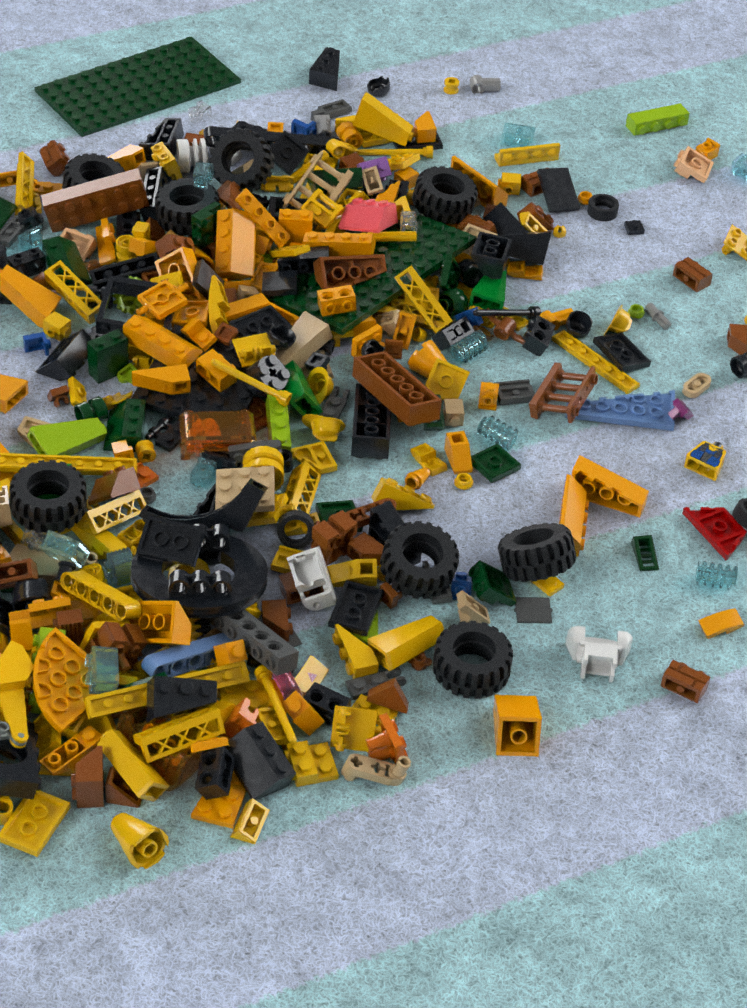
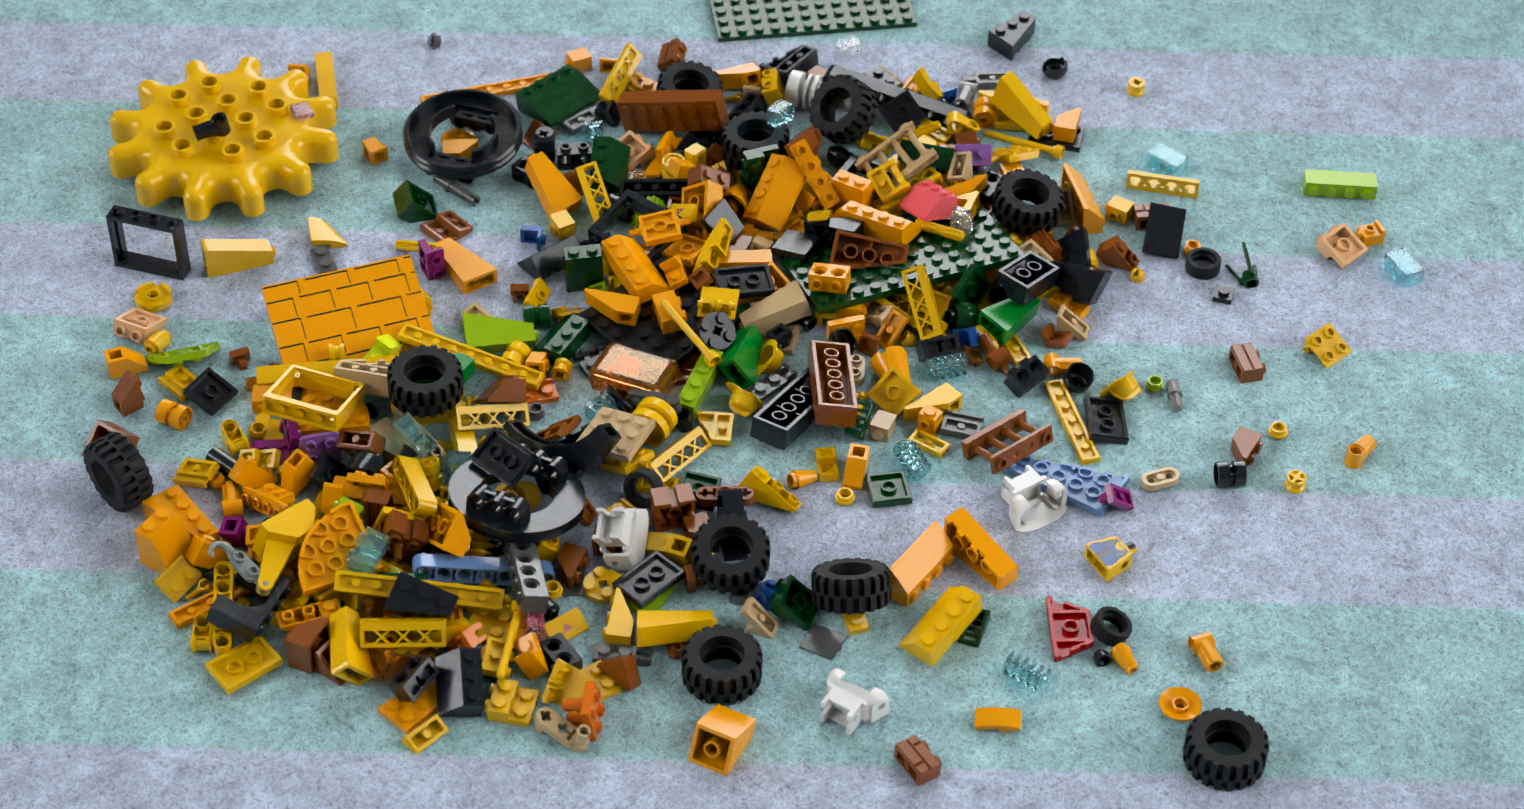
camera: 30 degrees right, 0 degrees up
(97, 447) = (517, 352): none -> yellow wheel
(139, 840) = (315, 713): yellow cone -> none
(186, 502) = (560, 428): none -> dark orange slope
(209, 744) = (418, 650): light orange tile -> none
(230, 652) = (496, 577): light orange brick -> none
(281, 337) = (753, 298): black hair -> none
(285, 122) = (926, 87): none -> yellow slope
(306, 633) = (592, 583): none -> yellow plate
(484, 372) = (941, 397): none -> yellow slope
(485, 84) = (1168, 93): light grey piece -> none
(510, 420) = (927, 446): none -> yellow tile
(530, 223) = (1105, 261): yellow slope -> none
(531, 312) = (1038, 350): black piece -> none
(539, 298) = (1054, 338): none -> dark orange bracket
(540, 283) = (1071, 322): none -> tan slope
(616, 441) = (1030, 508): none -> white piece
(622, 559) = (943, 624): none -> yellow slope
(644, 207) = (1249, 277): none -> dark green plant

